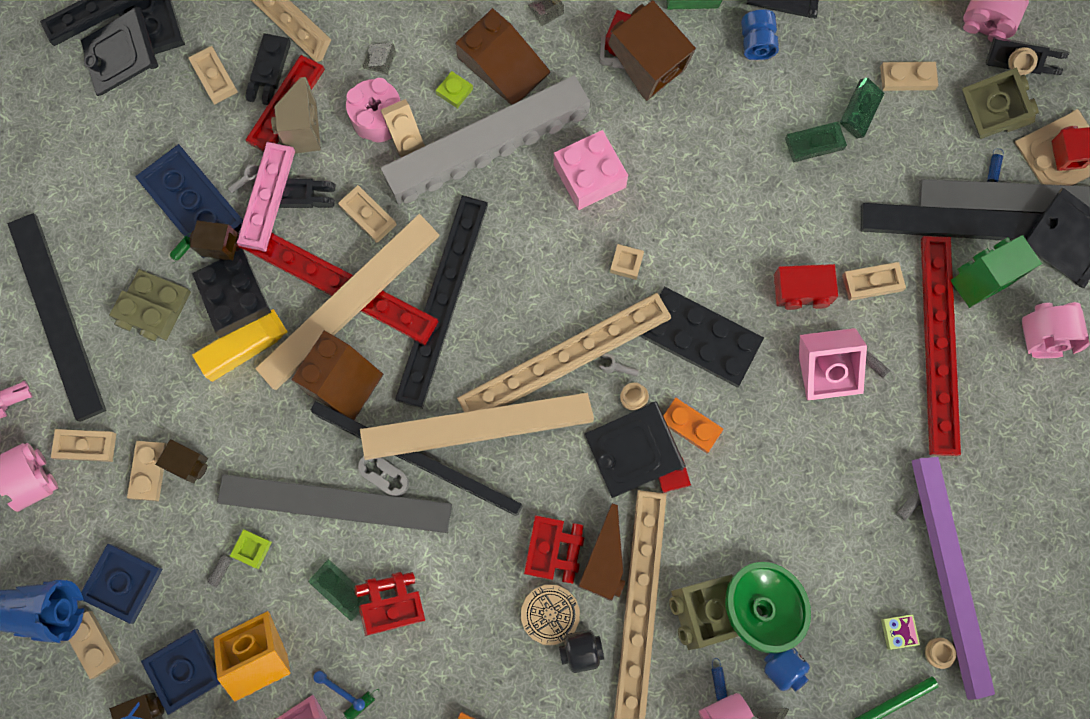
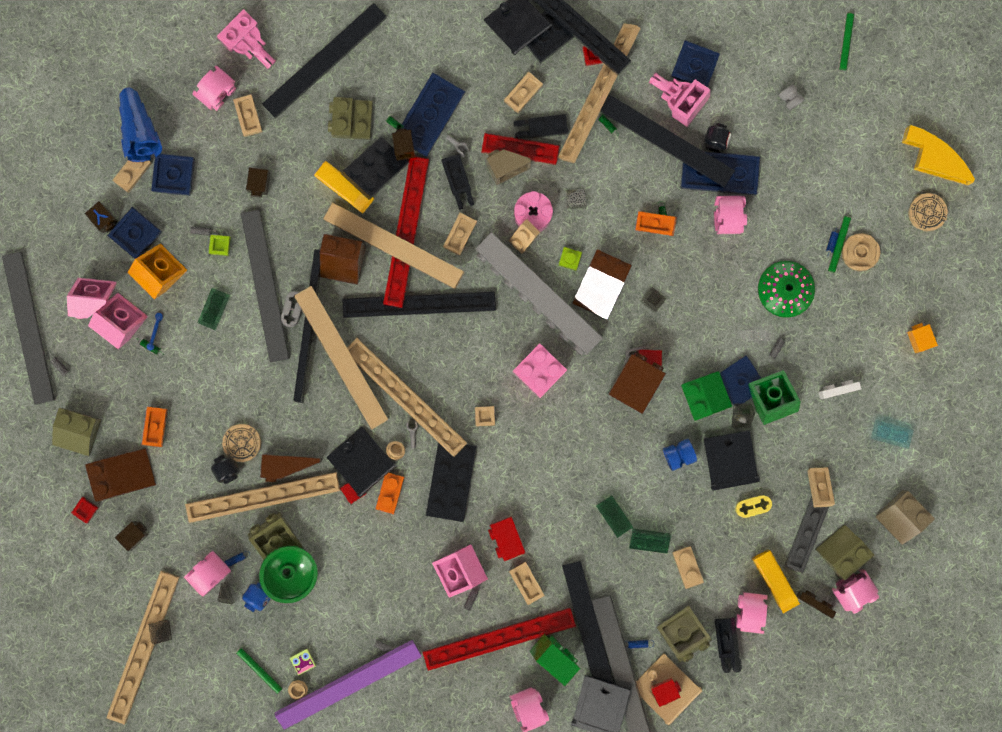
camera: 65 degrees right, 10 degrees up
(145, 475) = (241, 161): tan plate -> none
(266, 196) = (447, 164): bright pink tile -> none
(391, 612) = (210, 347): red plate -> none
(545, 547) = (281, 425): red plate -> none
(1024, 59) = (720, 641): tan plate -> none

